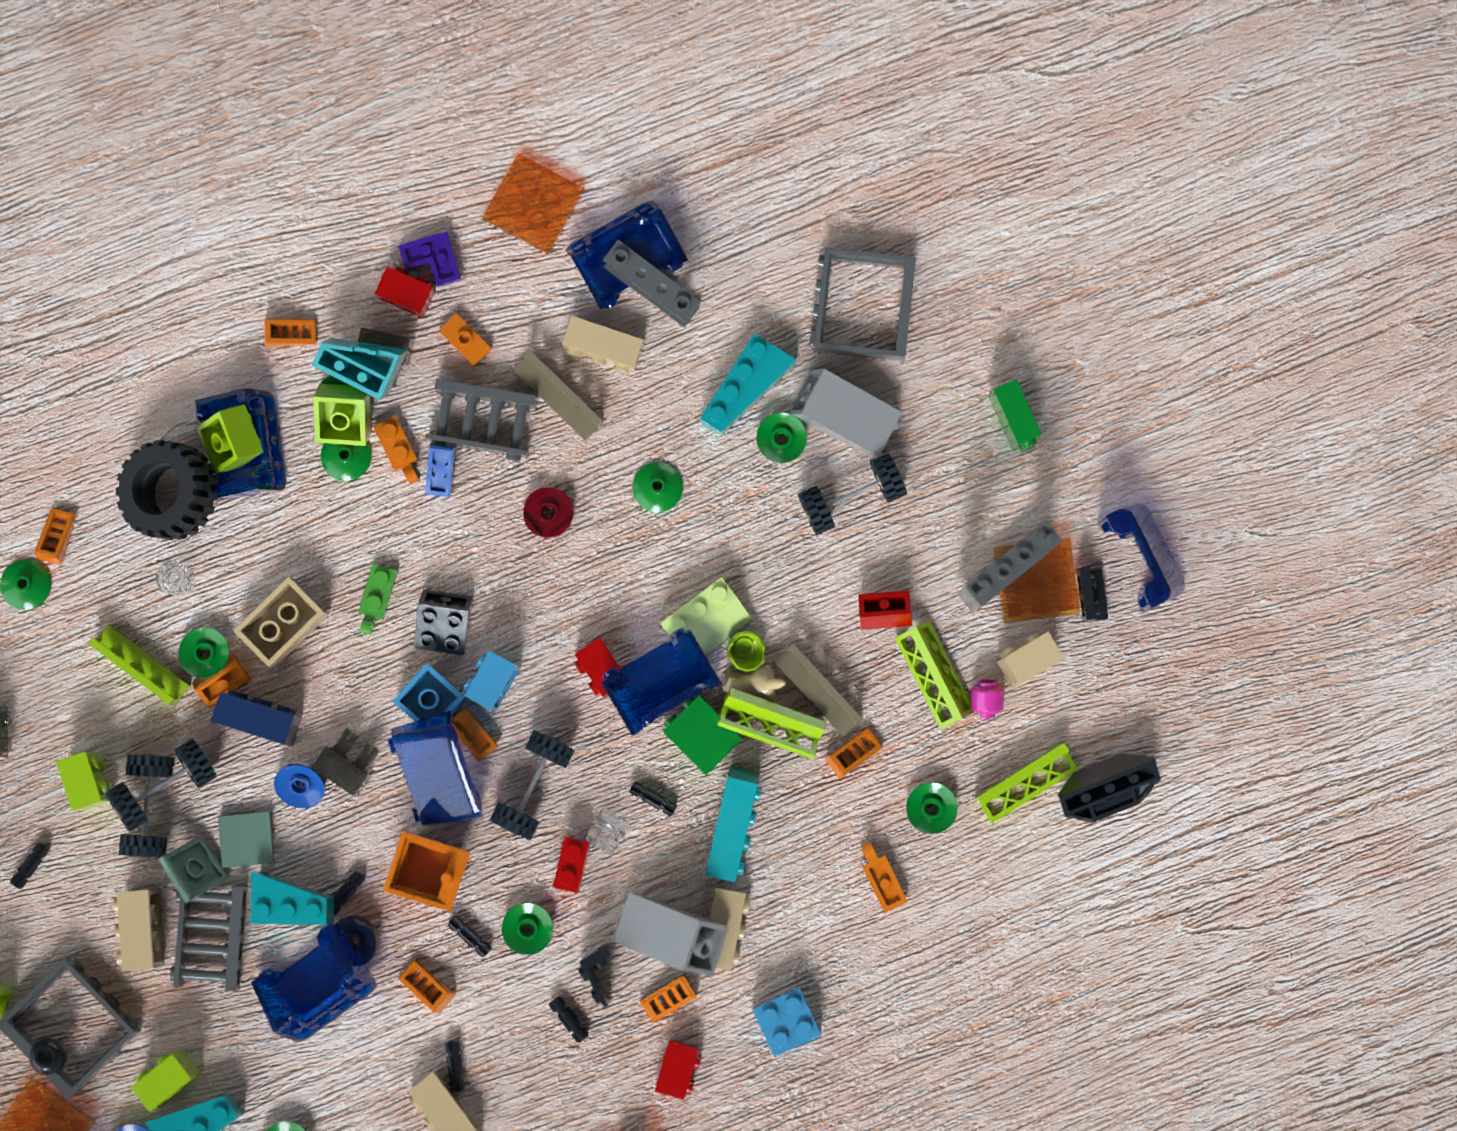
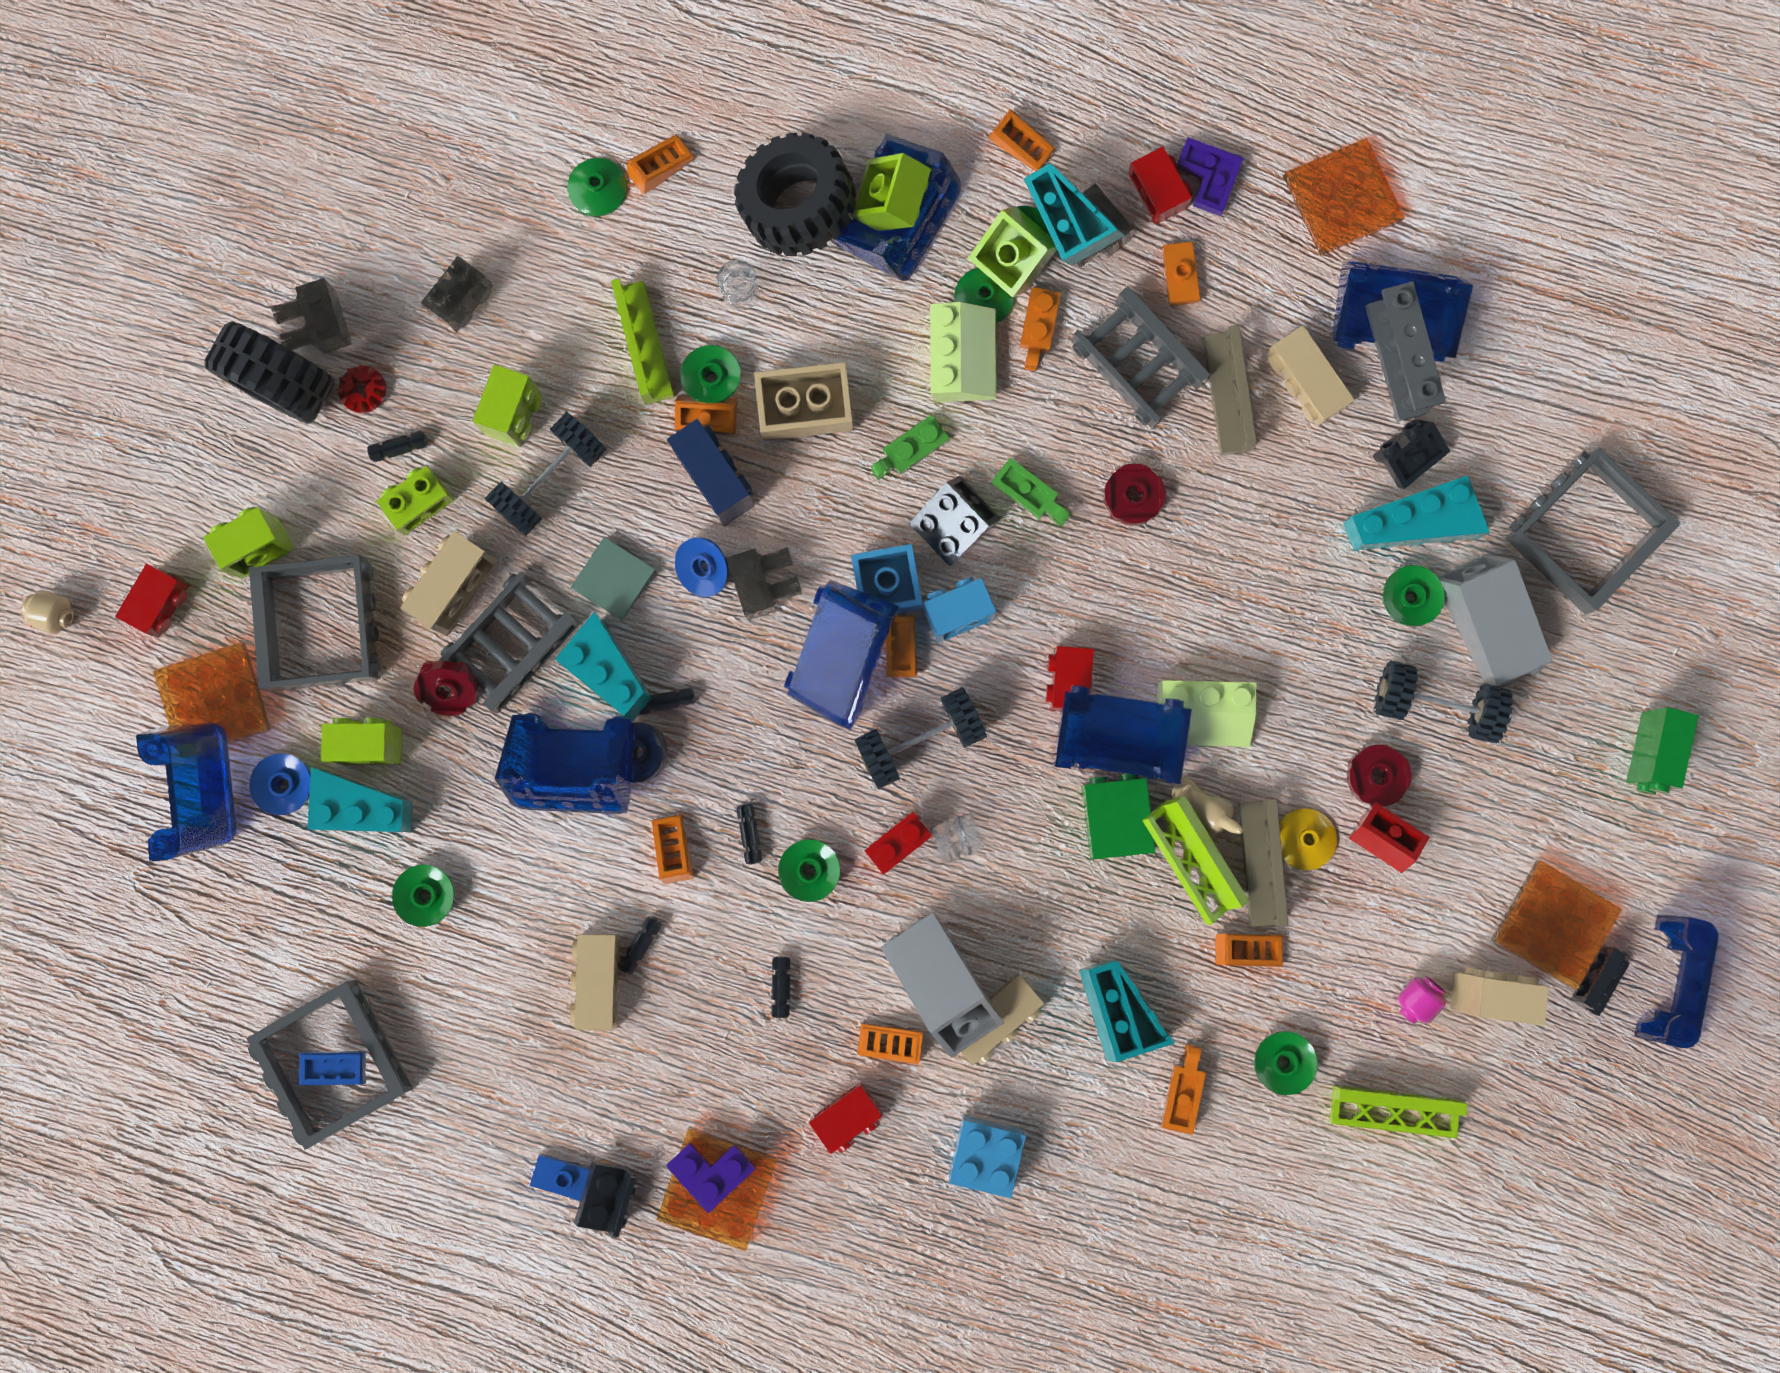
camera: 40 degrees right, 0 degrees up
(48, 1056) = (272, 634): black piece -> none
(70, 892) = (414, 500): none -> lime brick
(183, 991) = (450, 674): none -> dark red plate
(193, 762) = (621, 466): black axle -> none
(193, 868) = (543, 566): sand green tile -> none
(361, 507) = (963, 352): none -> yellowish green slope
(426, 871) = (757, 740): orange piece -> none
(440, 470) = (1063, 375): plate -> none
(477, 565) = (1029, 492): none -> bright green plate
(597, 959) = (855, 954): black bracket -> none
(653, 798) = (1023, 841): black axle -> none
(659, 500) = (1245, 562): green dish -> none
(708, 342) = (1412, 452): none -> black bracket
(733, 823) = (1082, 928): teal wedge -> none
(746, 651) = (1222, 771): lime hair -> none
(800, 860) = (1120, 1013): none -> teal wedge
(835, 665) = (1292, 831): none -> yellow dish
(847, 559) = (1388, 760): none -> dark red plate
(939, 671) = (1397, 937): lime fence -> none
(1009, 567) = (1556, 893): dark grey window -> none
(1108, 787) = (1479, 1181): black wedge -> none

